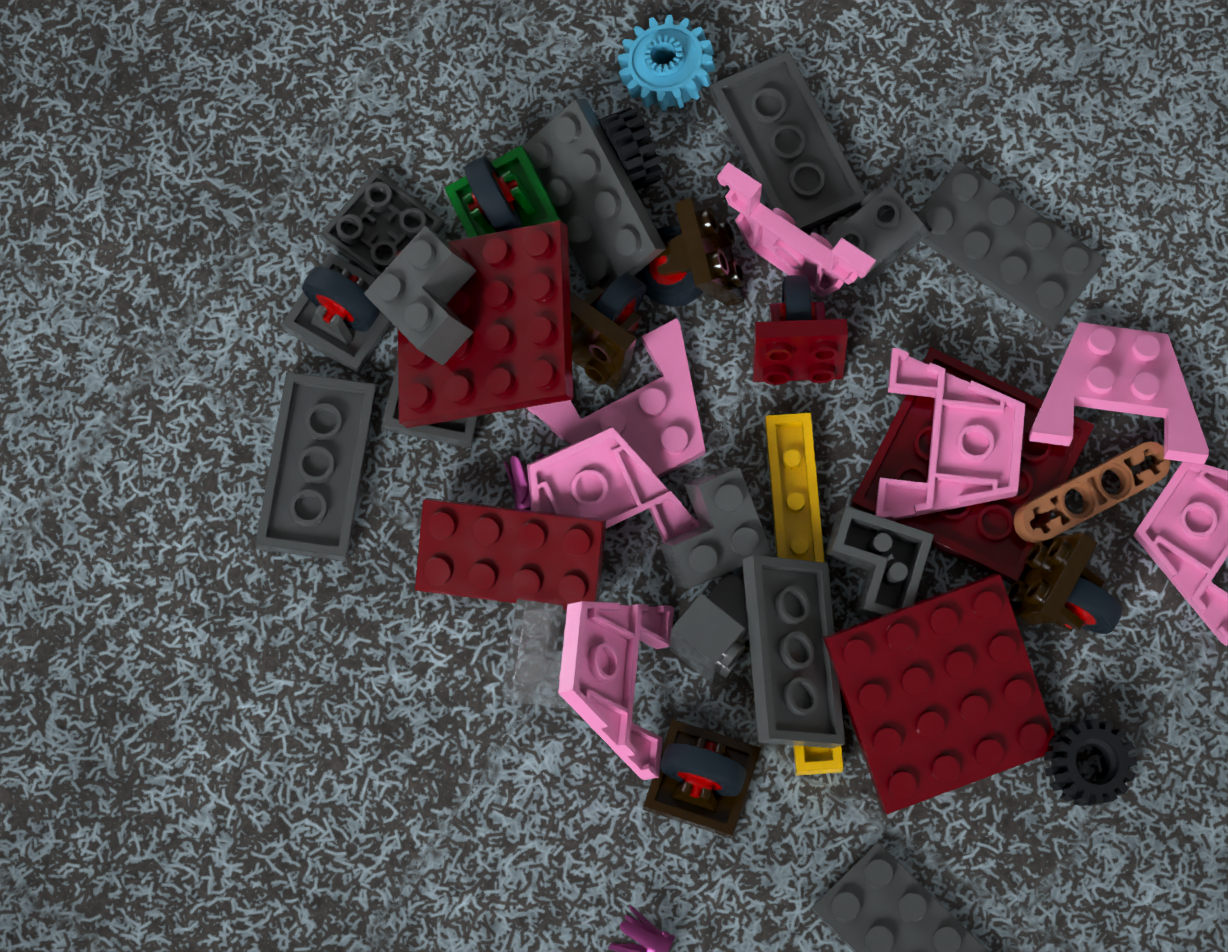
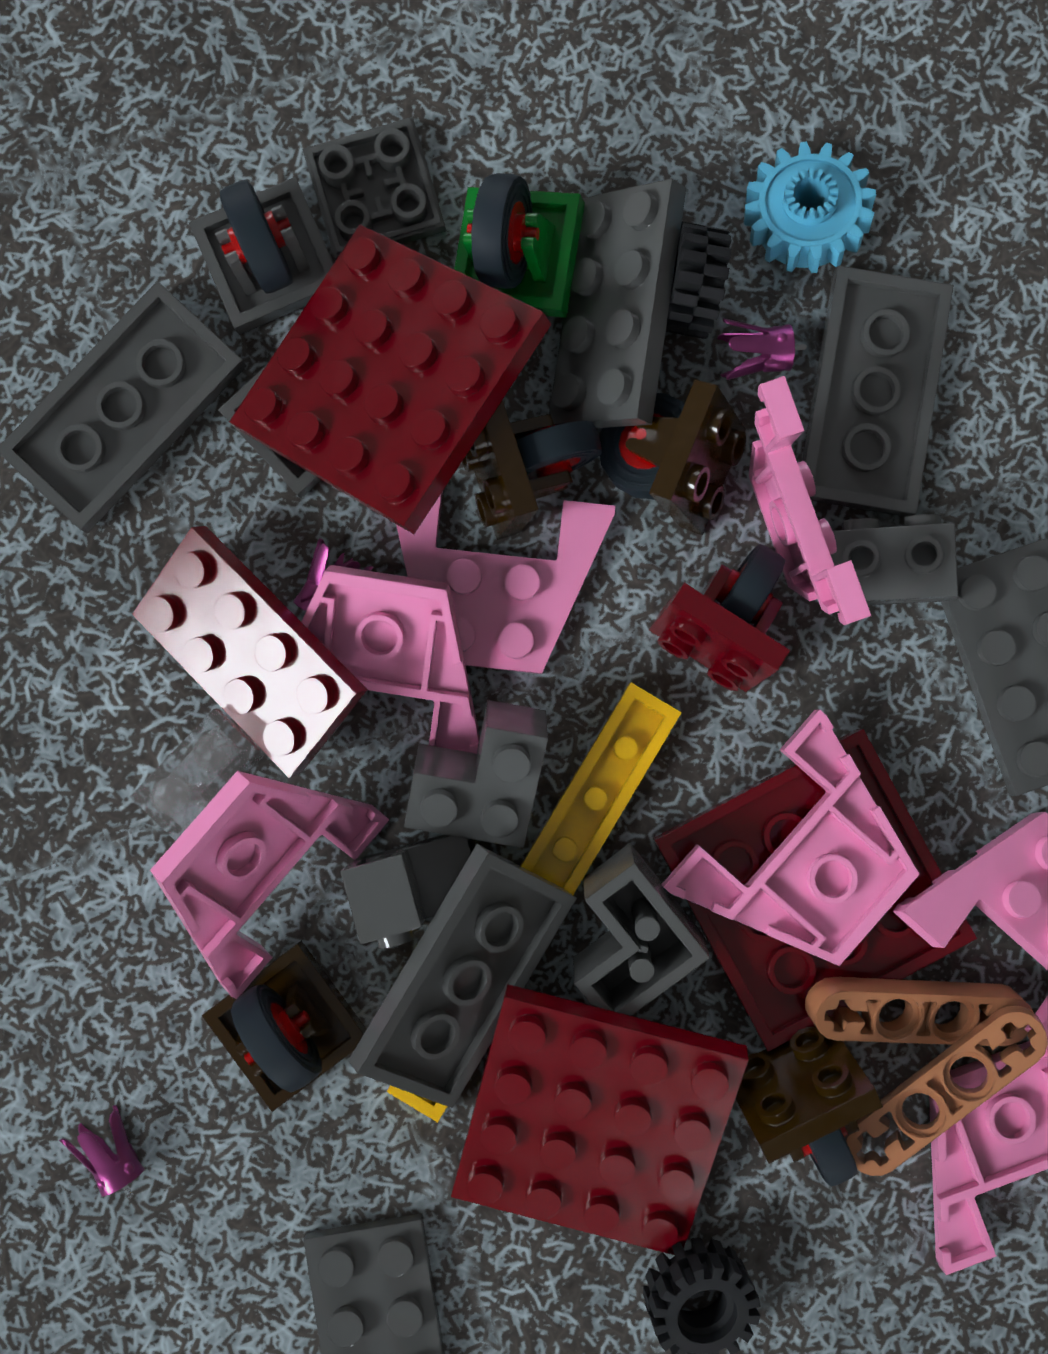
camera: 35 degrees right, 15 degrees up
(416, 294) = (326, 288): dark grey brick -> none
(704, 156) = (774, 344): none -> flat silver piece
(1136, 525) = (952, 1099): none -> nougat beam

